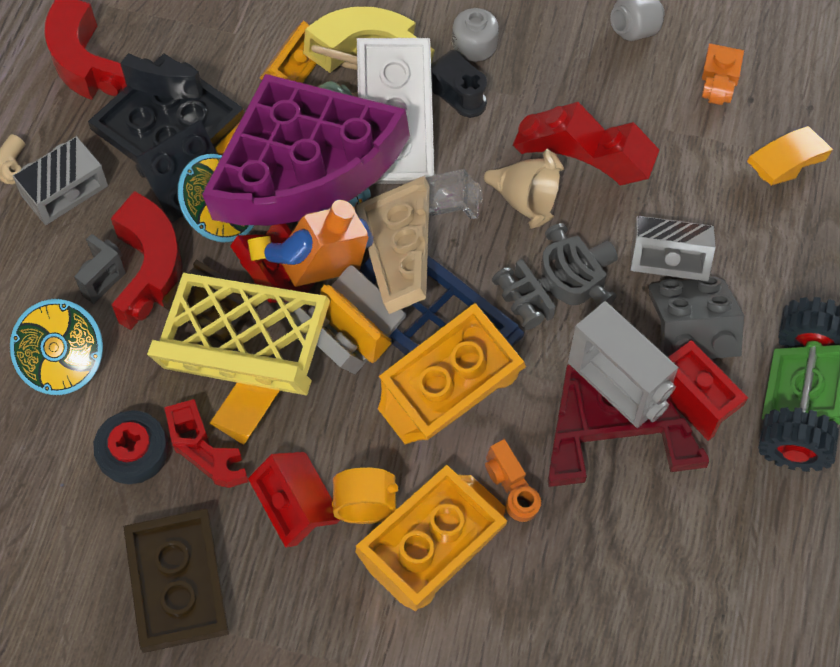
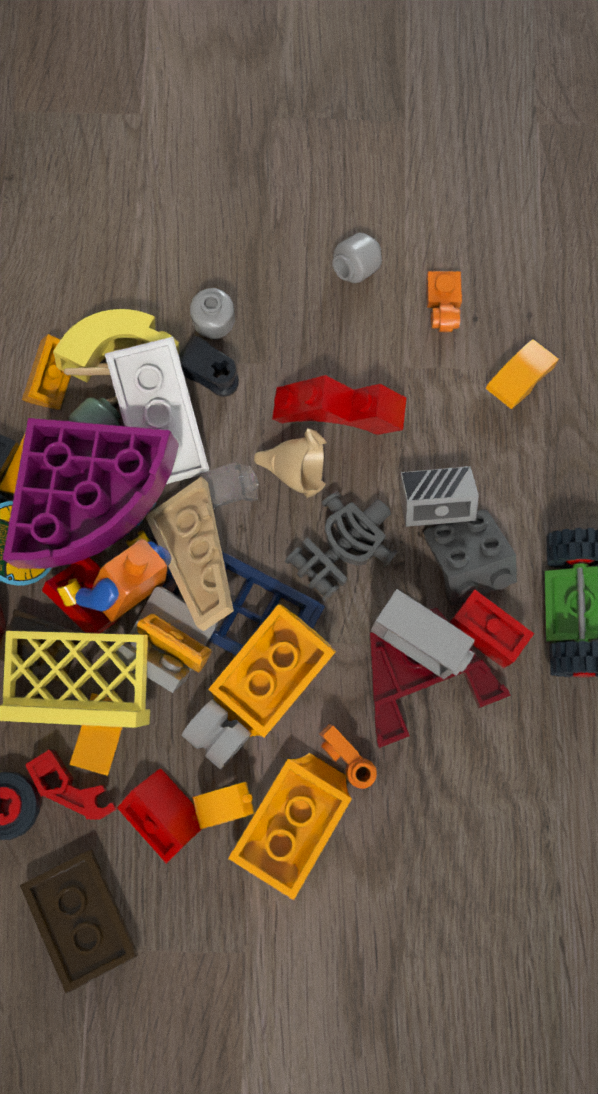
camera: 15 degrees left, 15 degrees up
(372, 421) = (216, 734): none -> light grey wheel

